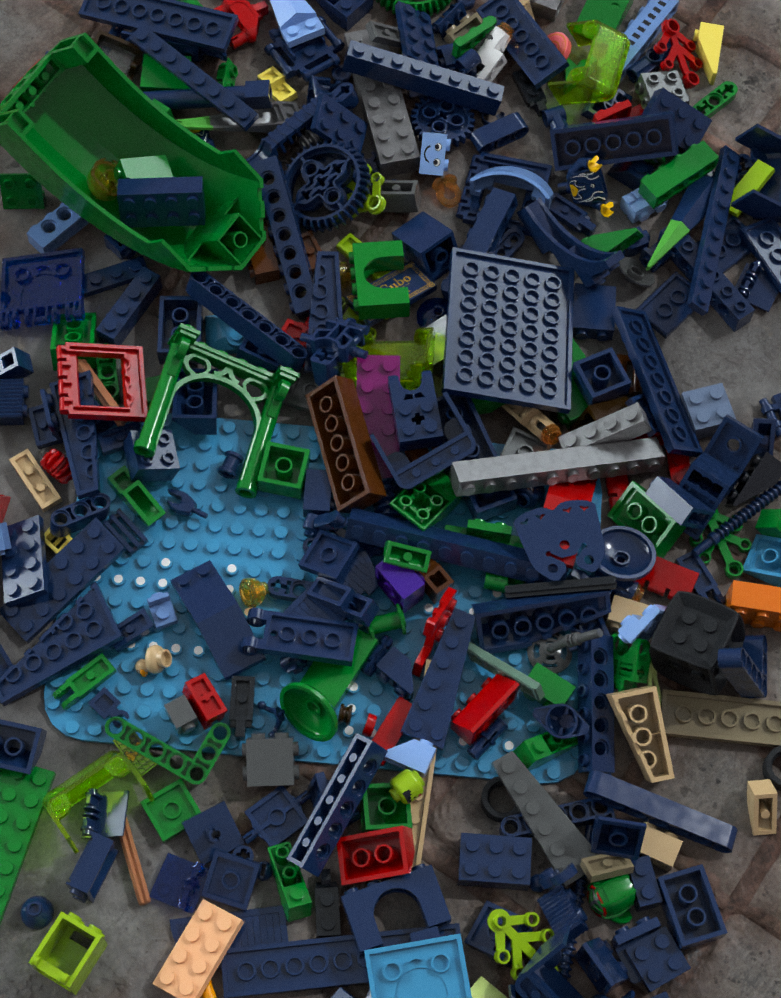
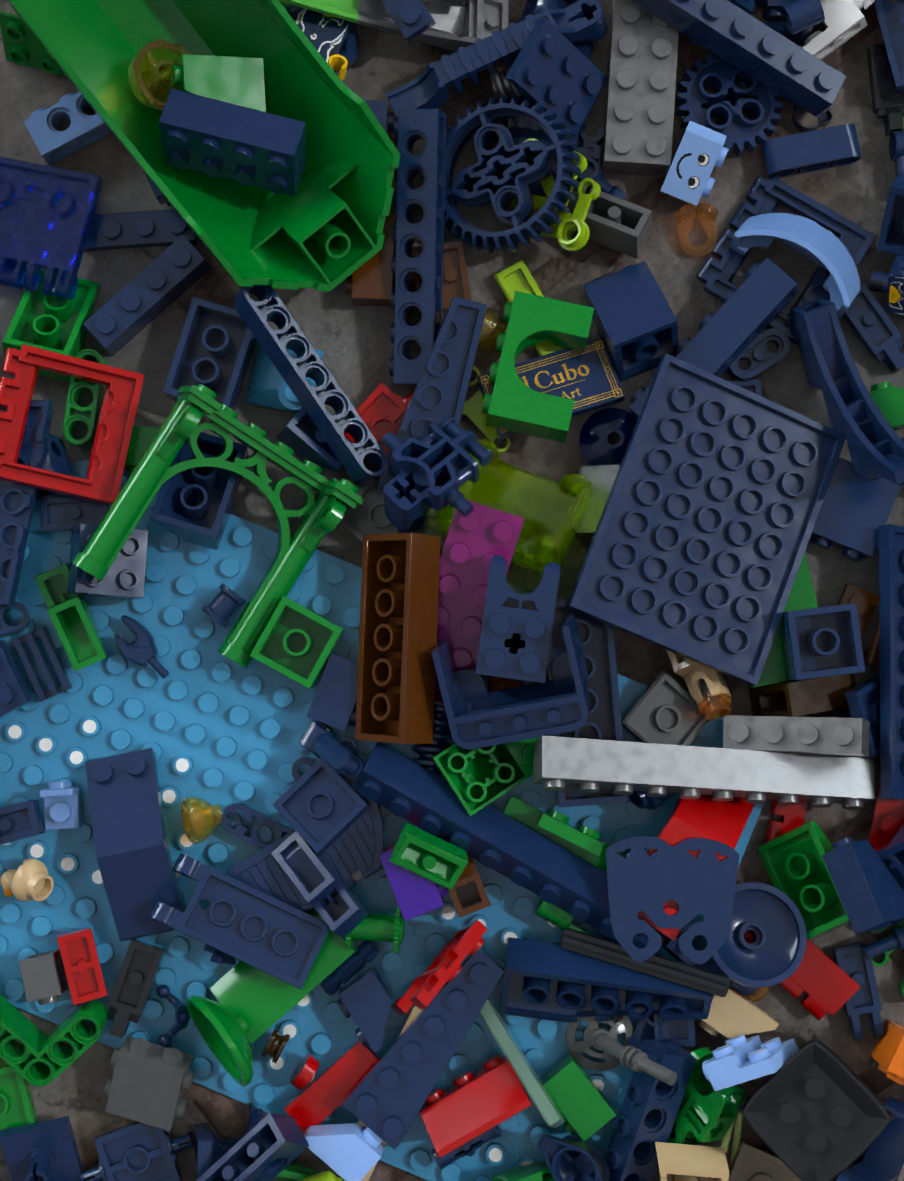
camera: 20 degrees right, 20 degrees up
(99, 389) = (60, 426): nougat axle -> none

